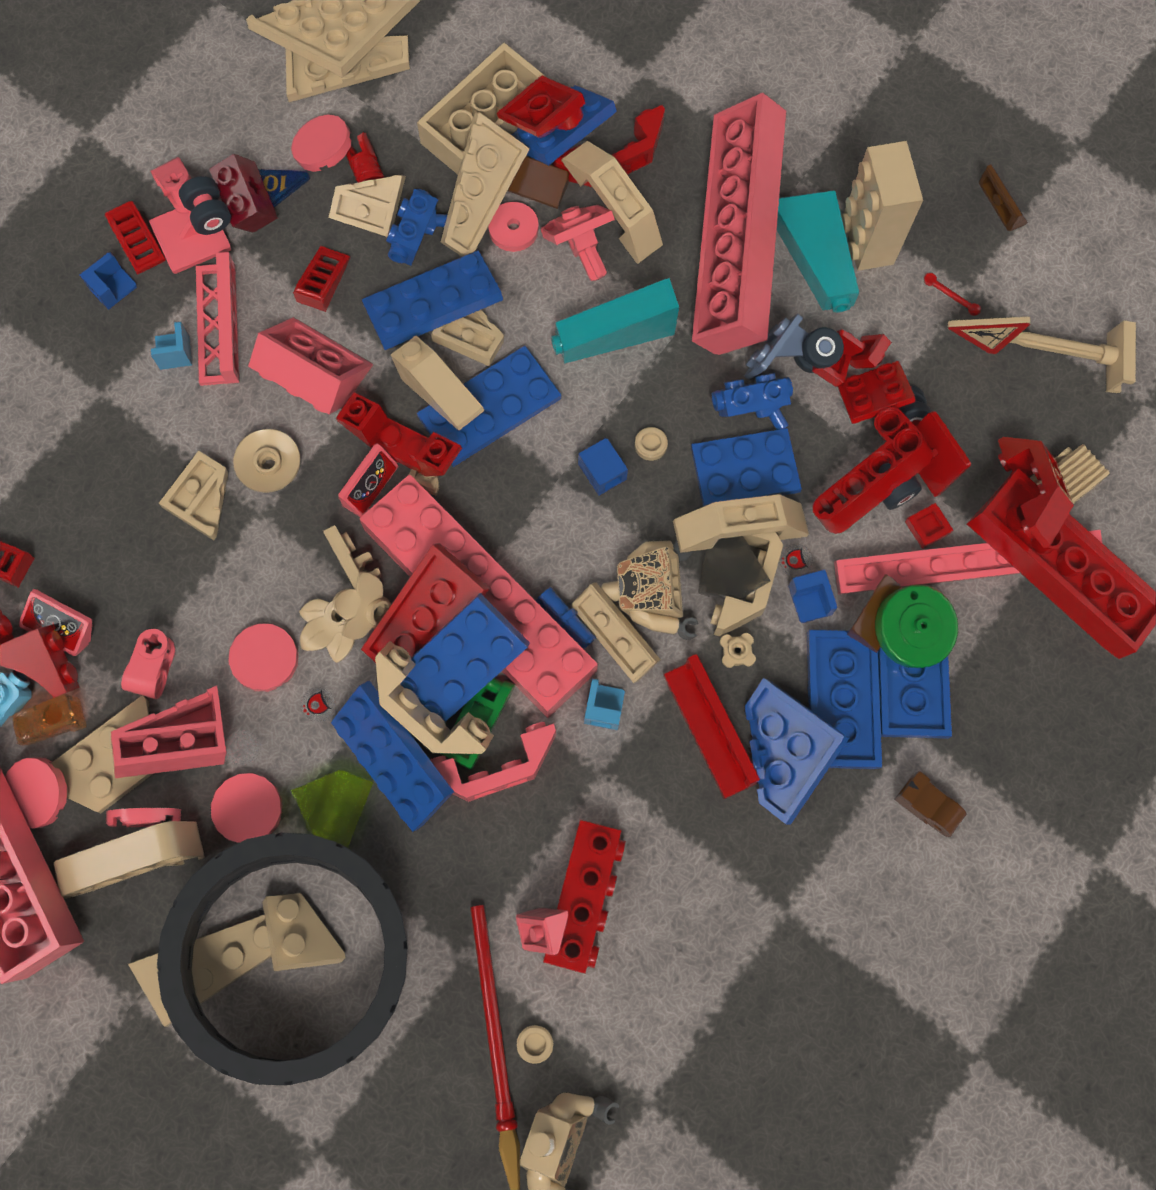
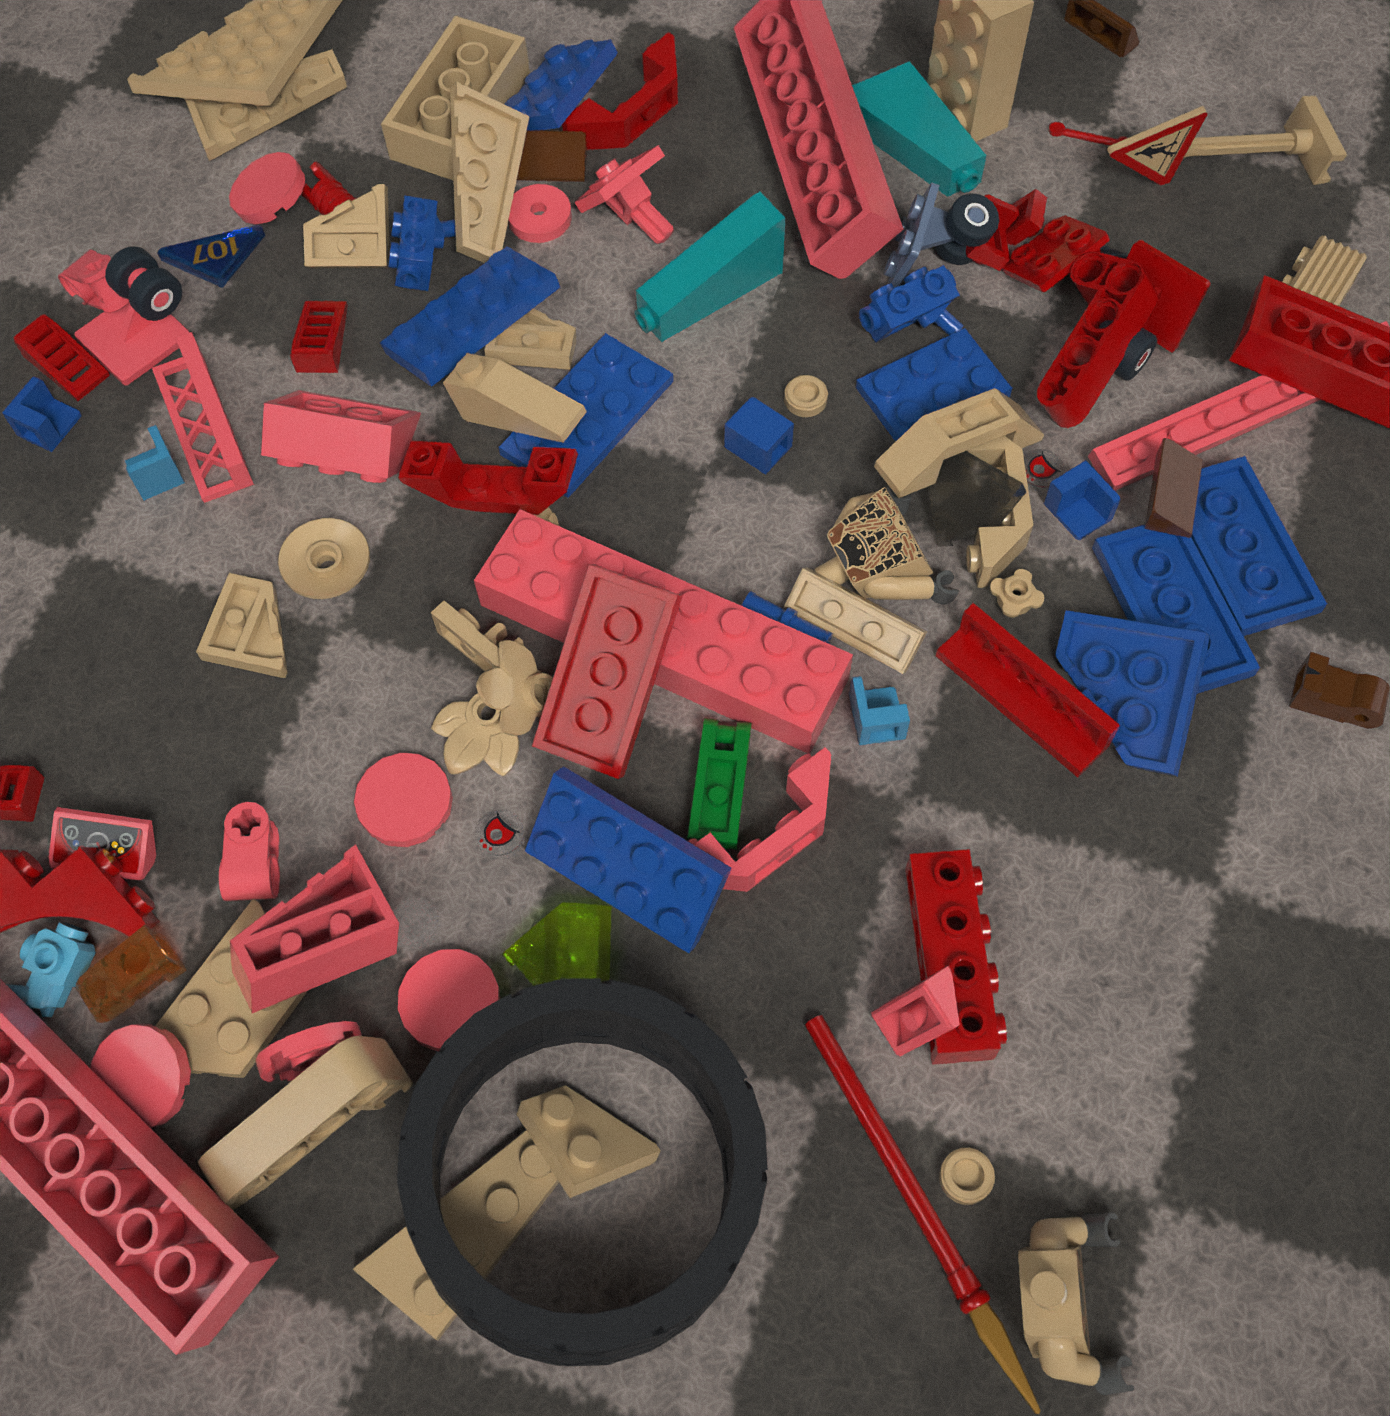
camera: 15 degrees left, 10 degrees down
(243, 193) = (182, 253): dark red brick -> none
(367, 481) = (465, 543): slope -> none
(463, 657) = (670, 710): blue plate -> none
(466, 737) = (716, 796): tan slope -> none
(544, 107) = (534, 61): red slope -> none
(620, 195) = (662, 125): tan slope -> none
(916, 626) = (1228, 487): green wheel -> none
(929, 525) = (1182, 381): red plate -> none
(1049, 510) = (1327, 294): red slope -> none

